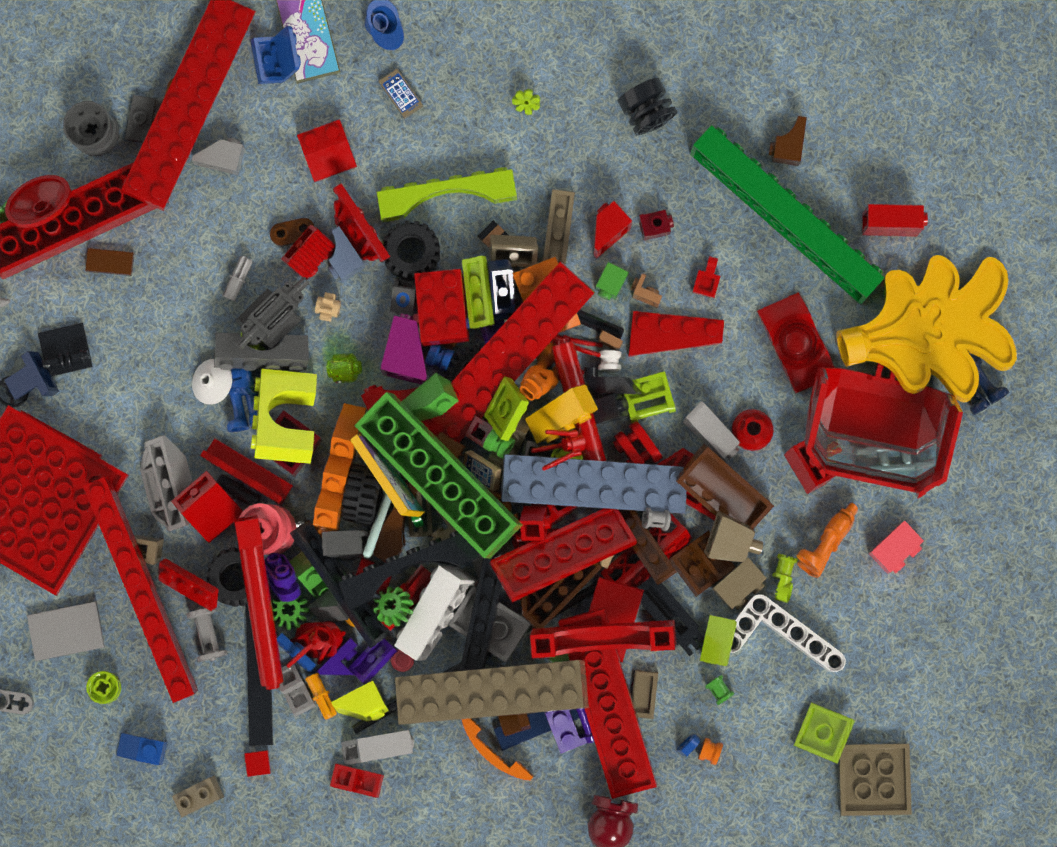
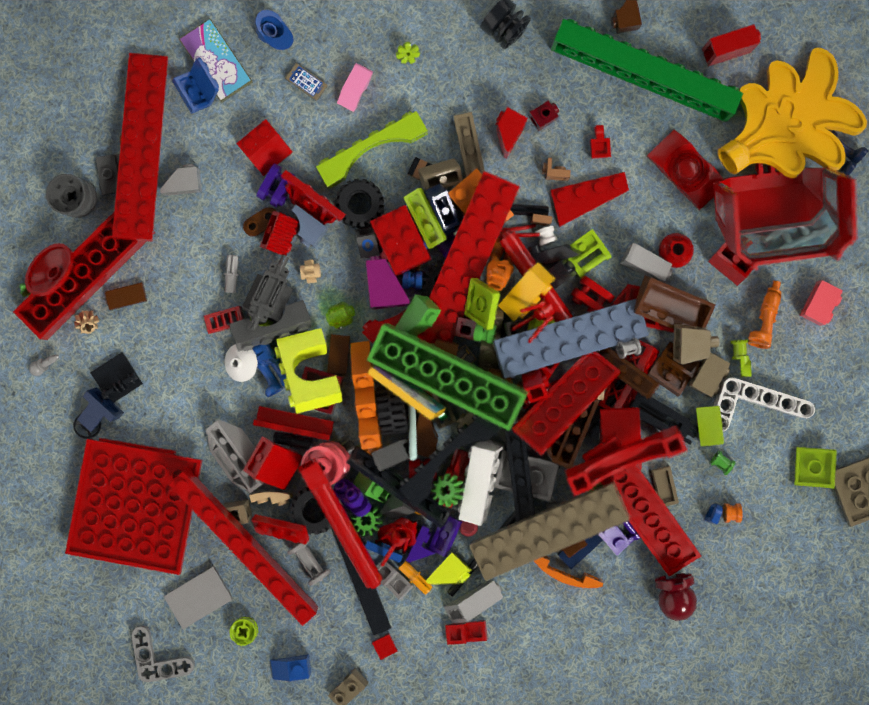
camera: 15 degrees left, 5 degrees up
(55, 274) = (86, 322): none -> tan gear
(196, 548) = (278, 497): none -> tan slope
(230, 324) = (239, 316): none -> red slope
(322, 211) = (278, 197): none -> dark purple brick
(326, 411) = (338, 354): none -> reddish brown tile
(452, 118) = (354, 87): none -> bright pink slope
(483, 470) = (481, 358): tile -> none
(611, 281) = (525, 172): bright green brick -> none

